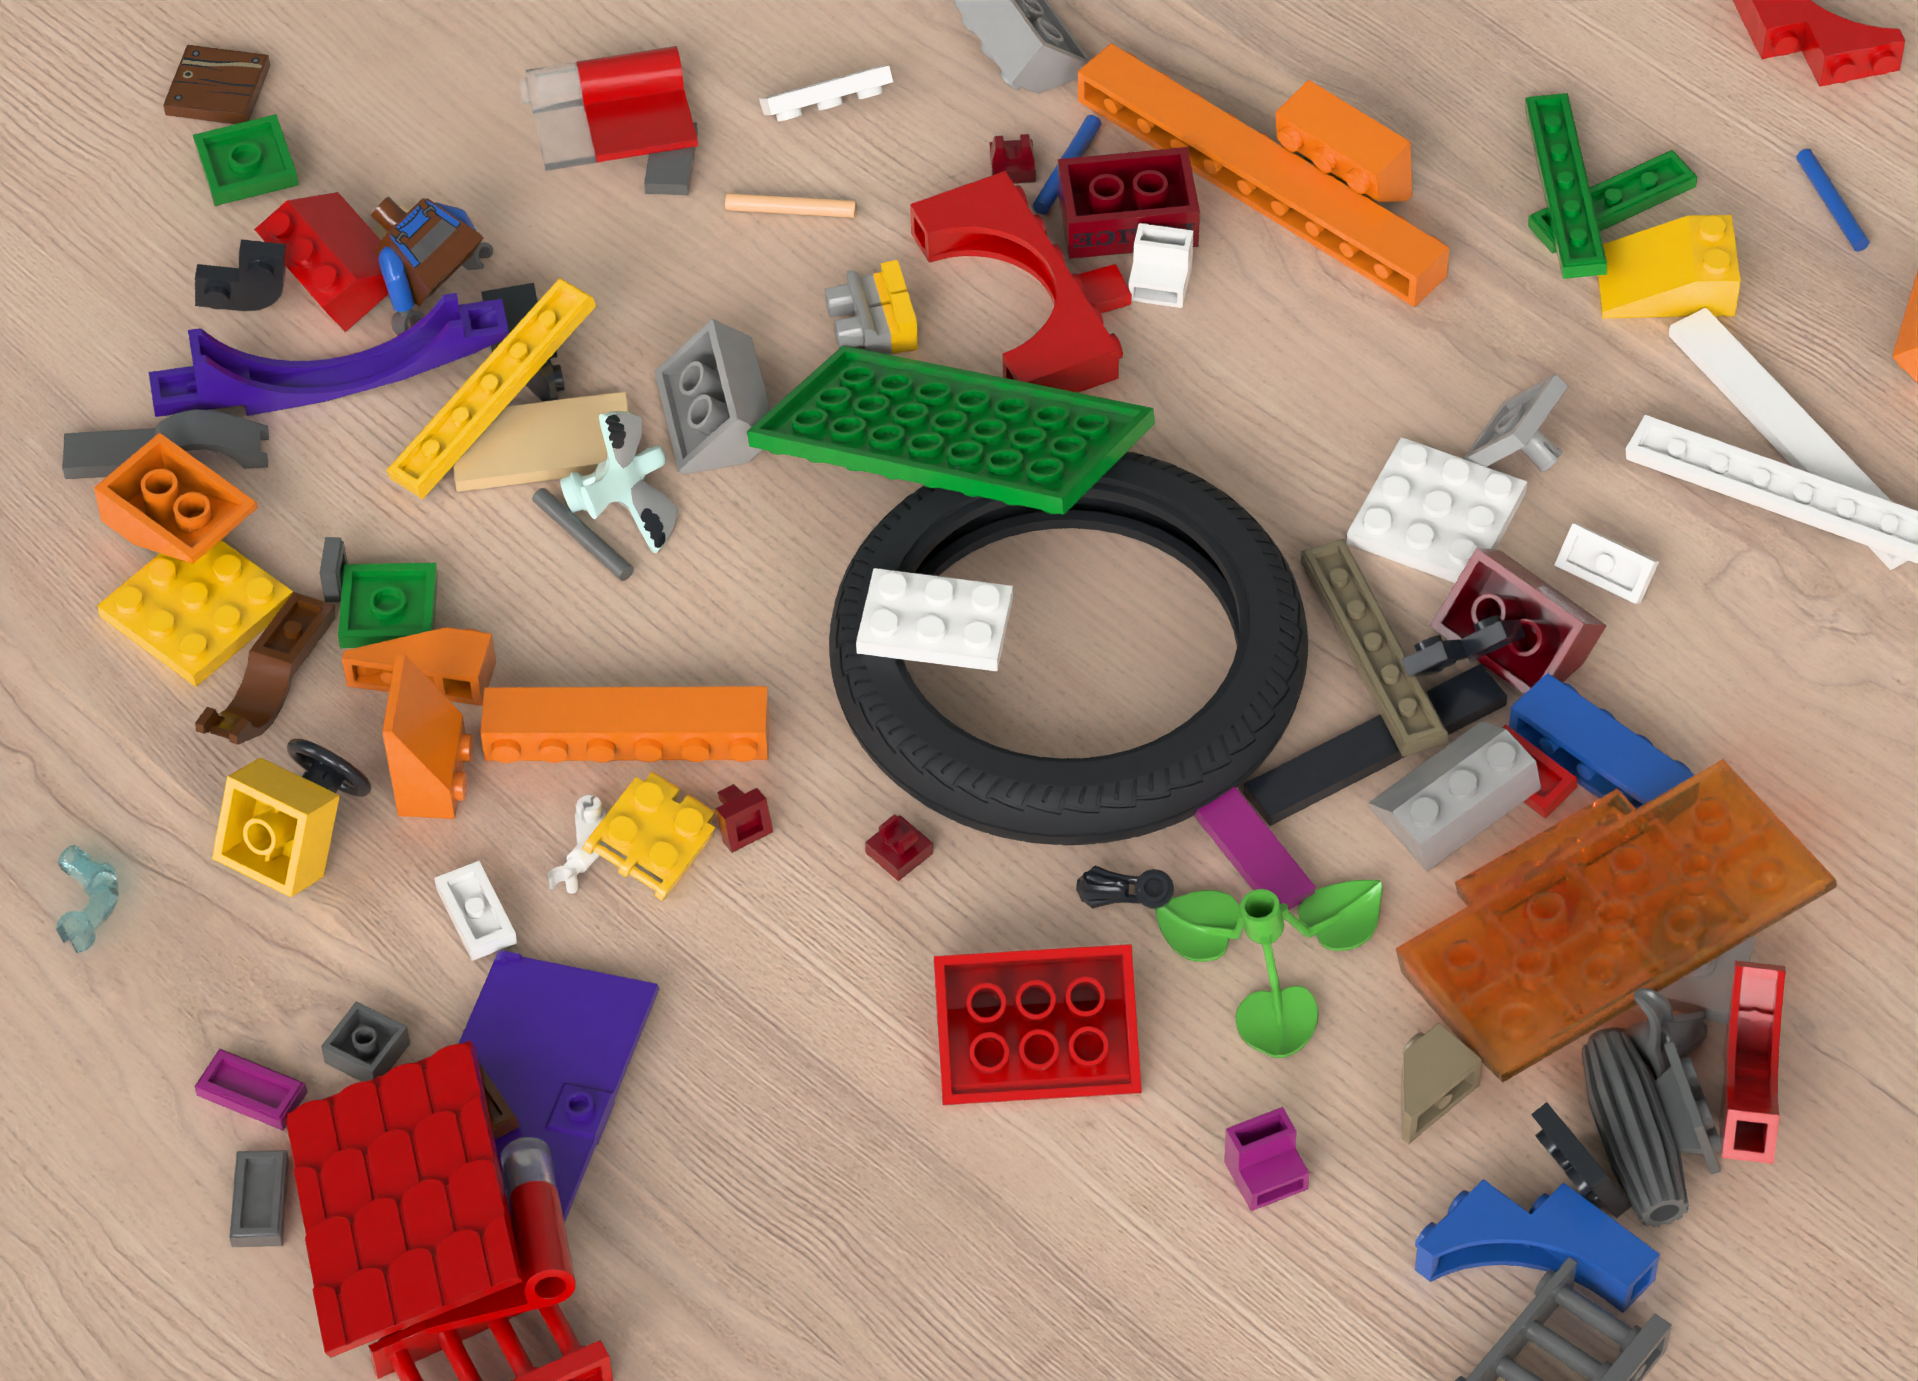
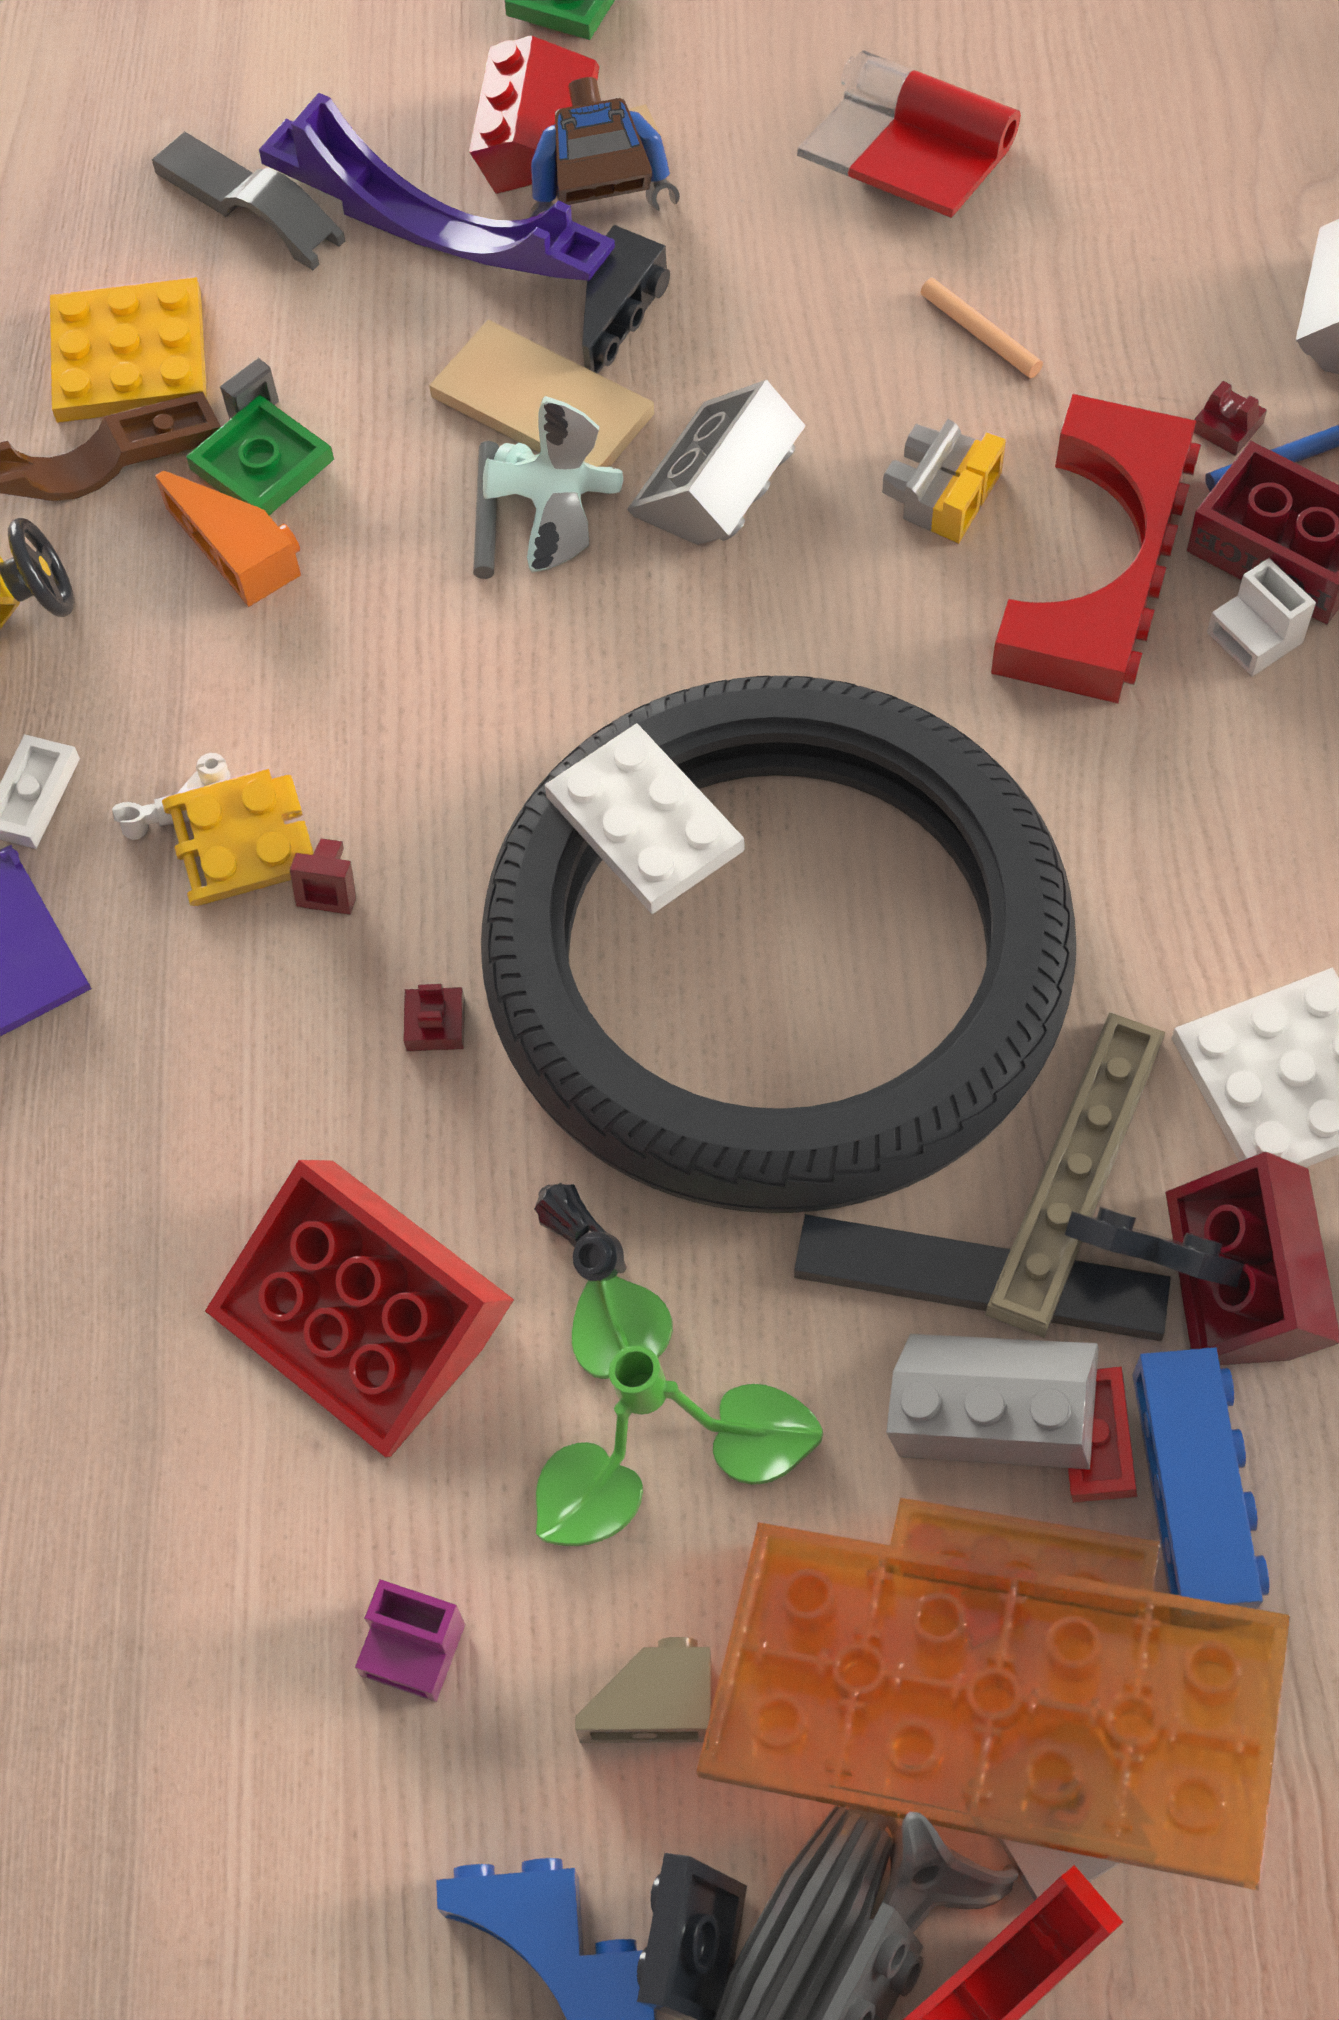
camera: 45 degrees right, 10 degrees up
(170, 501) = (178, 239): orange slope -> none
(247, 288) = (443, 88): black plate -> none
(424, 745) = (120, 596): orange slope -> none
(491, 388) = (533, 317): yellow tile -> none
(625, 723) = (327, 715): orange brick -> none
(670, 171) = (909, 226): dark grey tile -> none
(826, 93) = (1117, 242): white plate -> none
(952, 429) = (870, 645): green plate -> none
(1106, 288) = (1187, 604): red tile -> none
(1254, 848) = (742, 1297): magenta tile -> none

